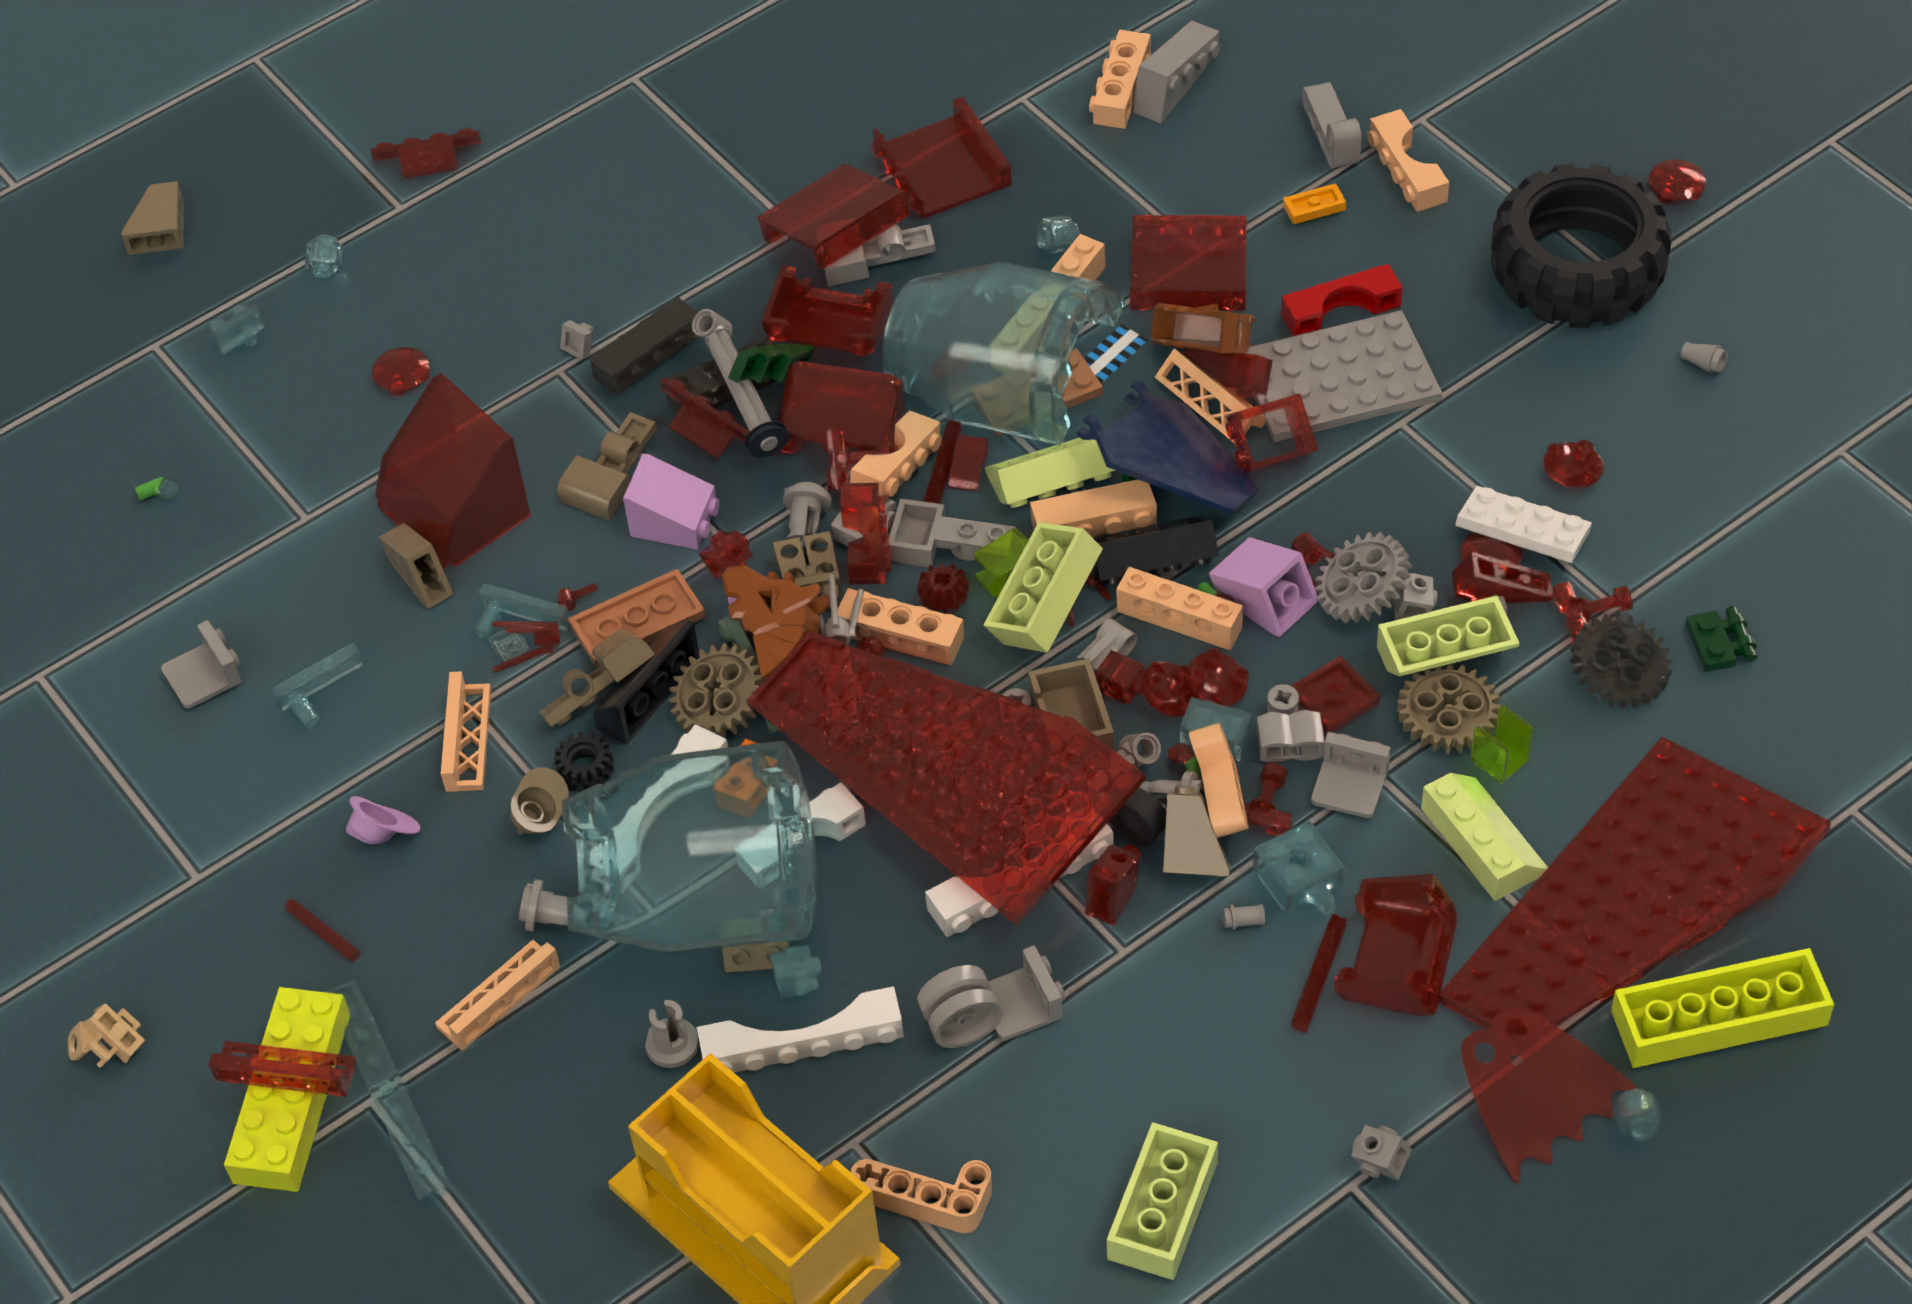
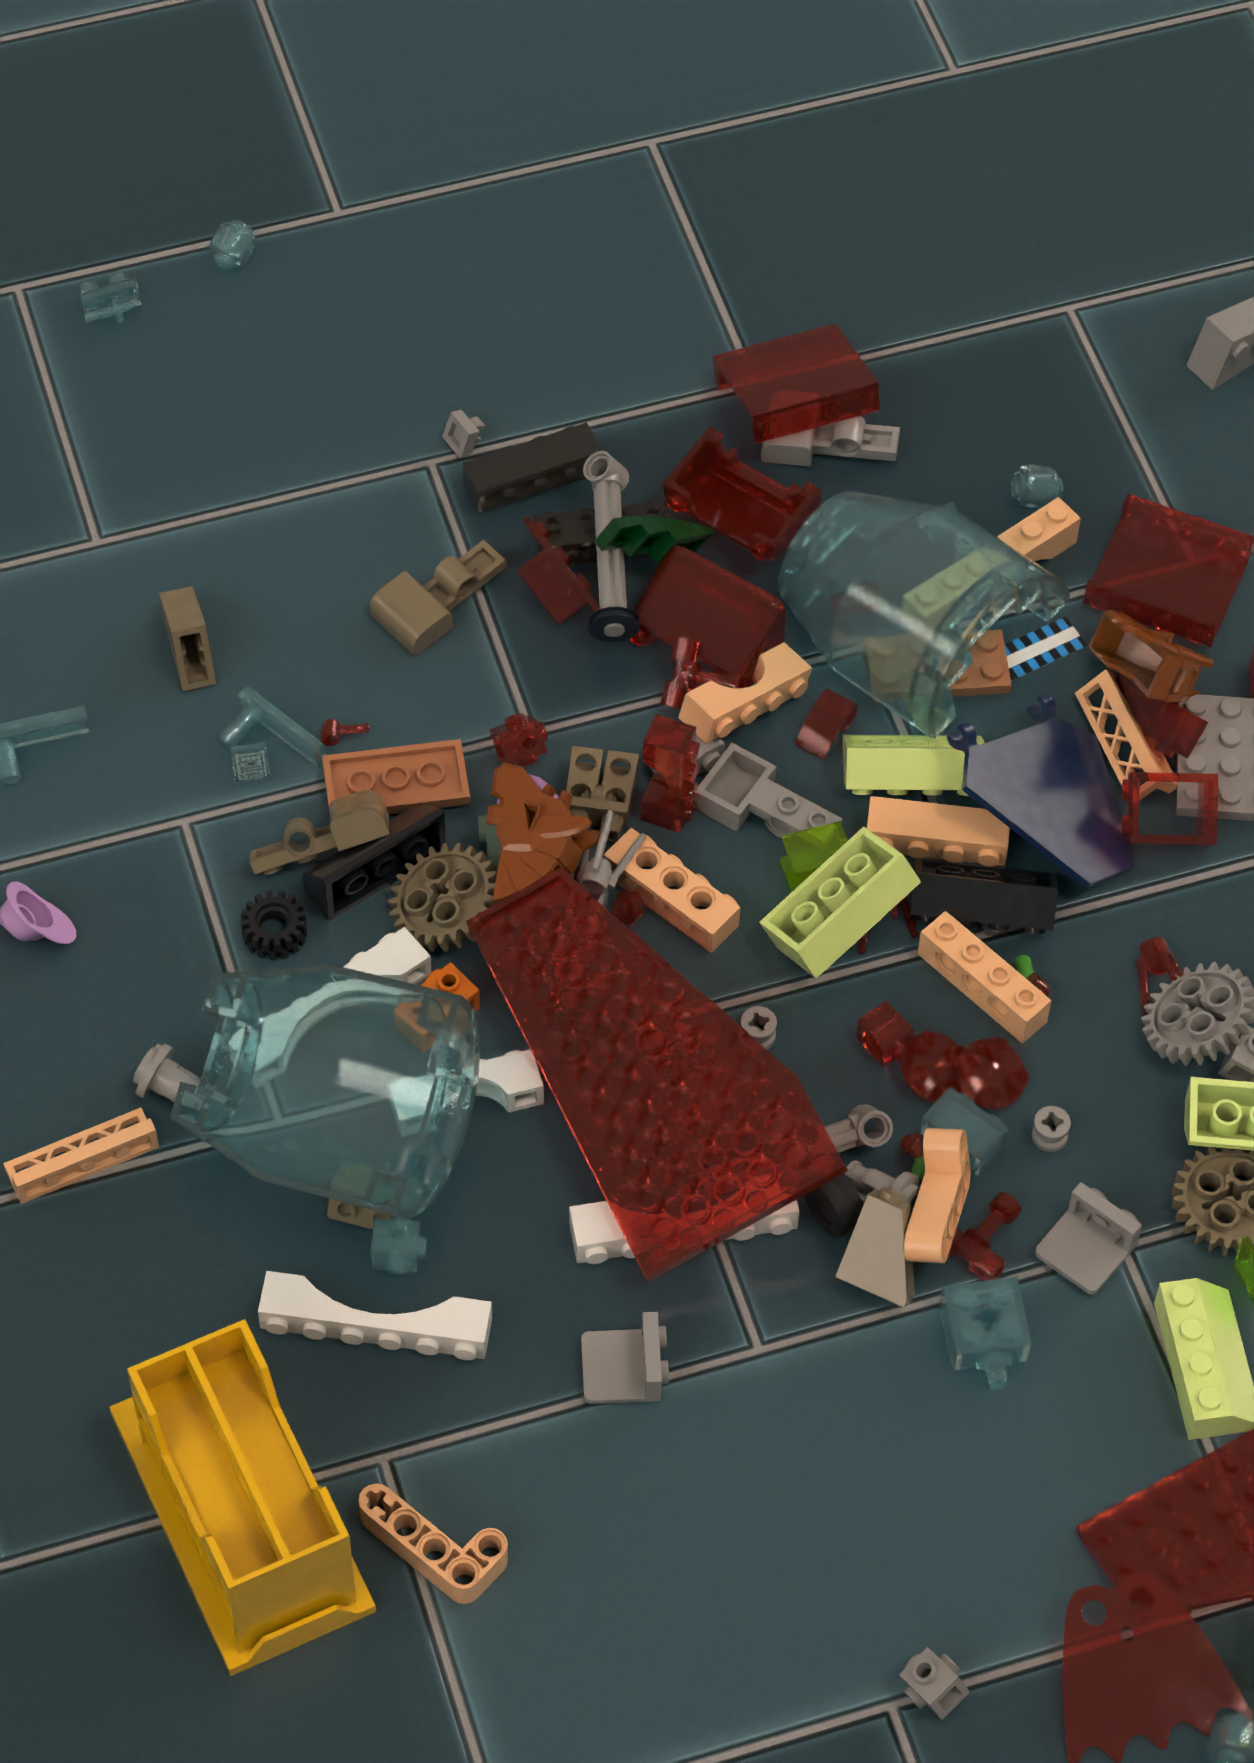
camera: 15 degrees right, 5 degrees up
(156, 221) = (73, 143): dark tan slope -> none
(400, 370) = (262, 404): clear red dish -> none
(427, 155) = (390, 162): clear red bracket -> none
(452, 475) = (257, 554): clear red windscreen -> none
(454, 730) = (152, 842): light nougat fence -> none
(538, 801) = (206, 950): dark tan piece -> none
(544, 634) = (290, 764): clear red plant -> none
(662, 1032) = (236, 1260): light grey piece -> none
(669, 504) = (480, 662): lavender slope -> none
(806, 504) = (628, 713): light grey piece -> none
(943, 462) = (797, 716): clear red axle -> none
(943, 587) = (737, 861): clear red gear -> none
(944, 162) = (947, 357): clear red panel -> none
(959, 1006) = (551, 1350): light grey wheel -> none
(1074, 693) = (817, 1048): dark tan piece -> none
(1109, 637) = (894, 985): light grey piece -> none
(1114, 868) = (775, 1268): clear red torso -> none
(1119, 80) = (1176, 332): light nougat brick -> none
(1162, 1201) = (676, 1648): yellowish green brick -> none
(1243, 916) = (903, 1357): light grey pin -> none
(1268, 583) = (1091, 983): lavender slope -> none
(1290, 736) = (1042, 1168): light grey brick -> none
(1319, 973) = (958, 1452): clear red axle -> none
(1336, 694) = (1113, 1138): clear red plate -> none
(1402, 945) = (1060, 1456): clear red windscreen -> none

